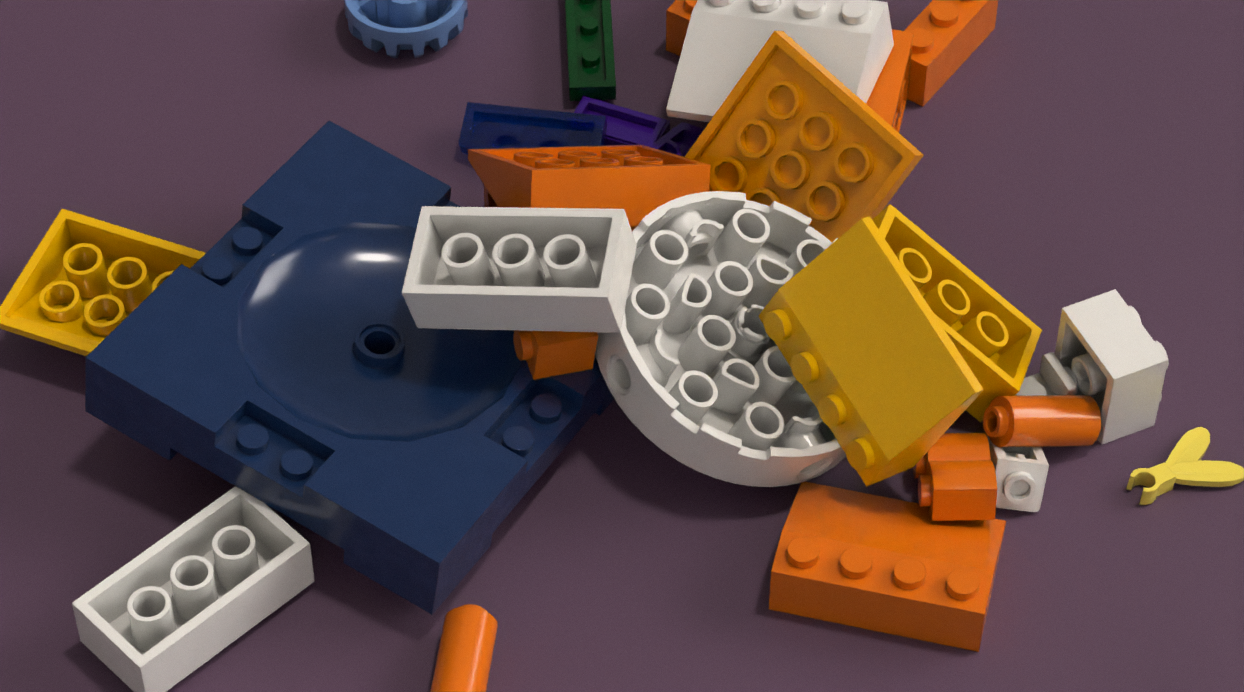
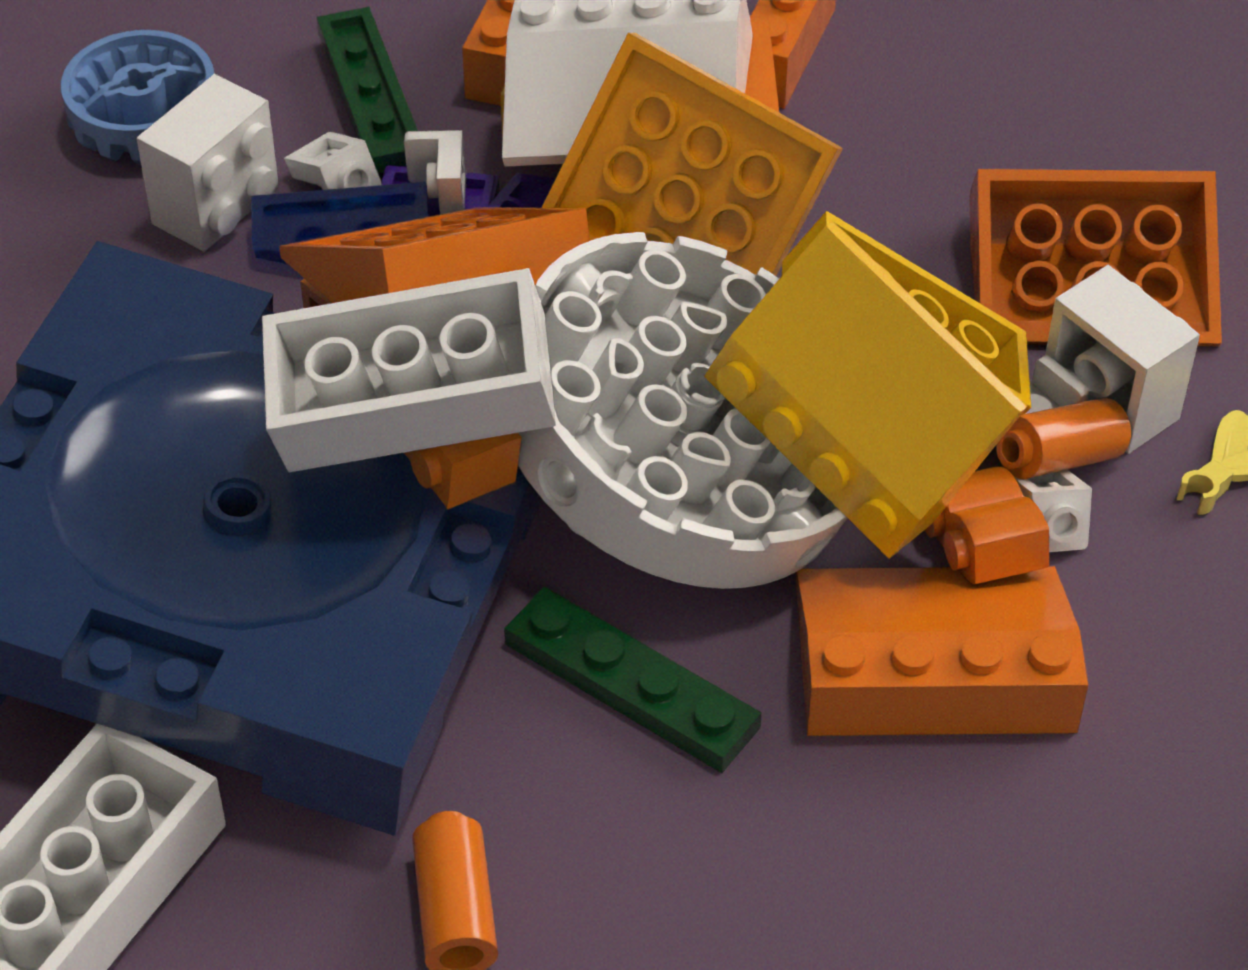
camera: 15 degrees left, 0 degrees up
(440, 68) = (208, 161): none -> white brick
(542, 87) = (334, 163): none -> white bracket
(622, 105) = (440, 162): none -> white bracket
(648, 538) = (633, 679): none -> dark green plate
(1157, 262) = (1054, 228): none -> orange slope

